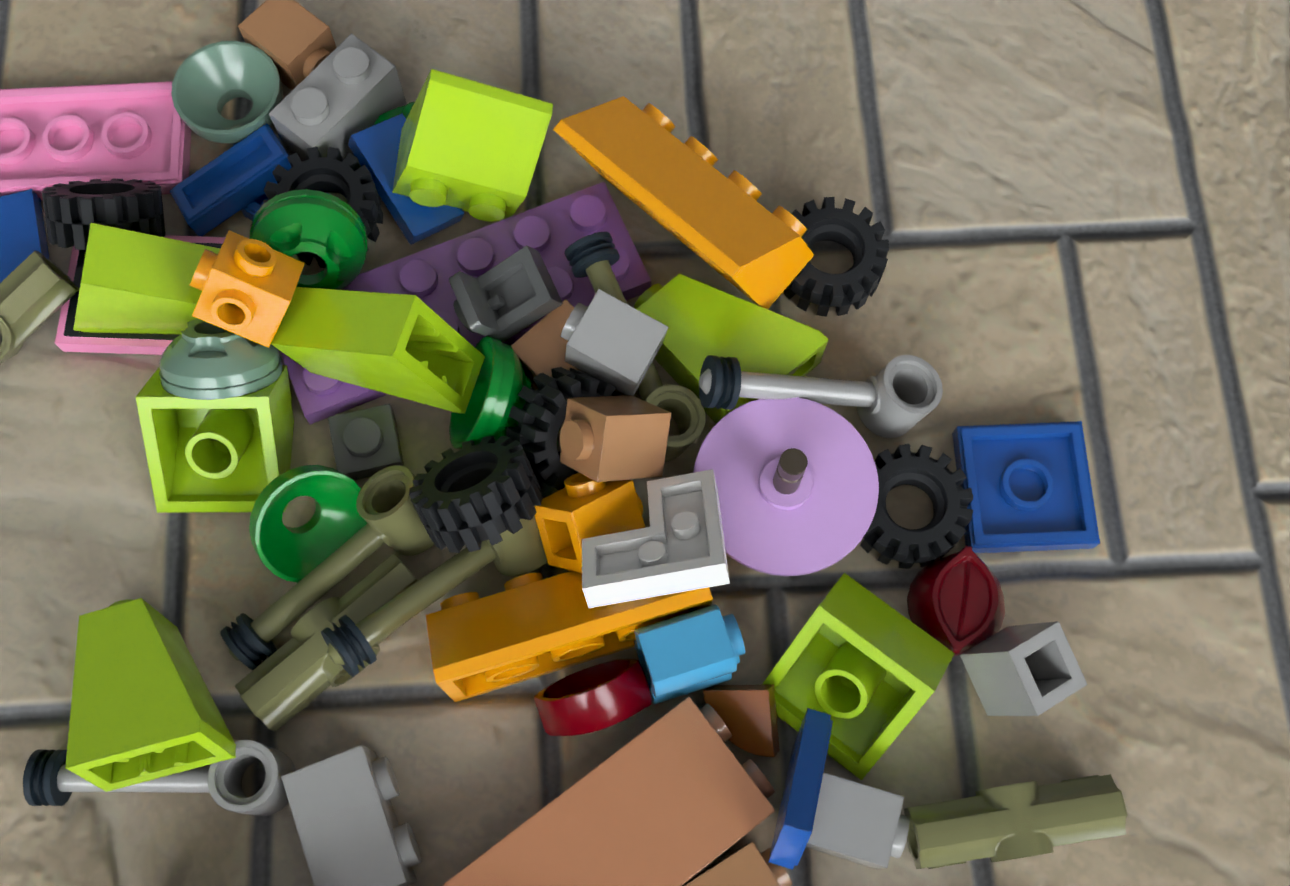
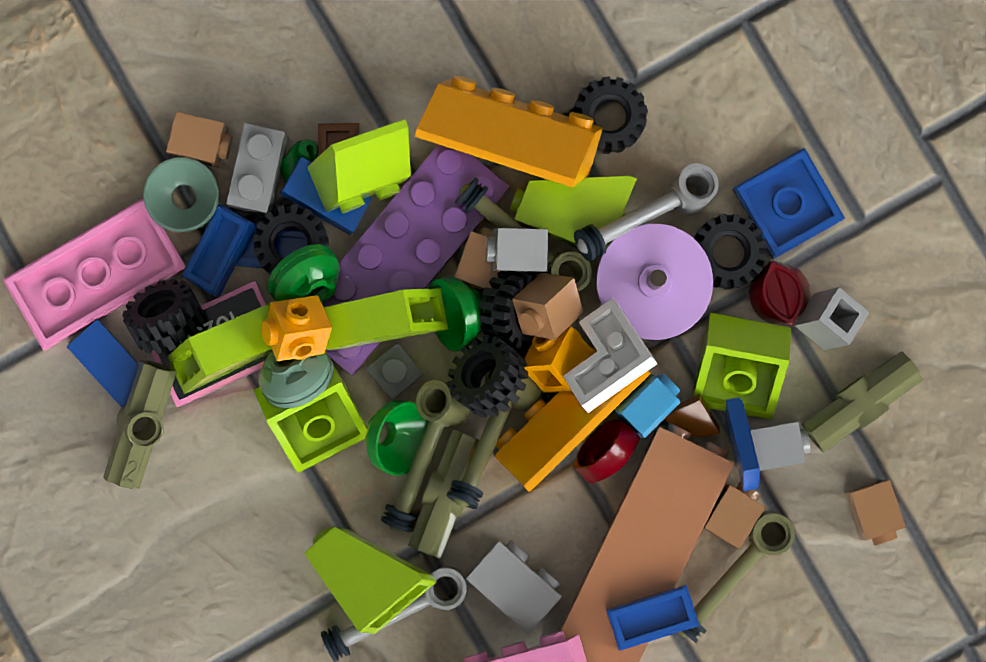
camera: 30 degrees left, 15 degrees up
(505, 296) = (436, 248): dark grey bracket -> none

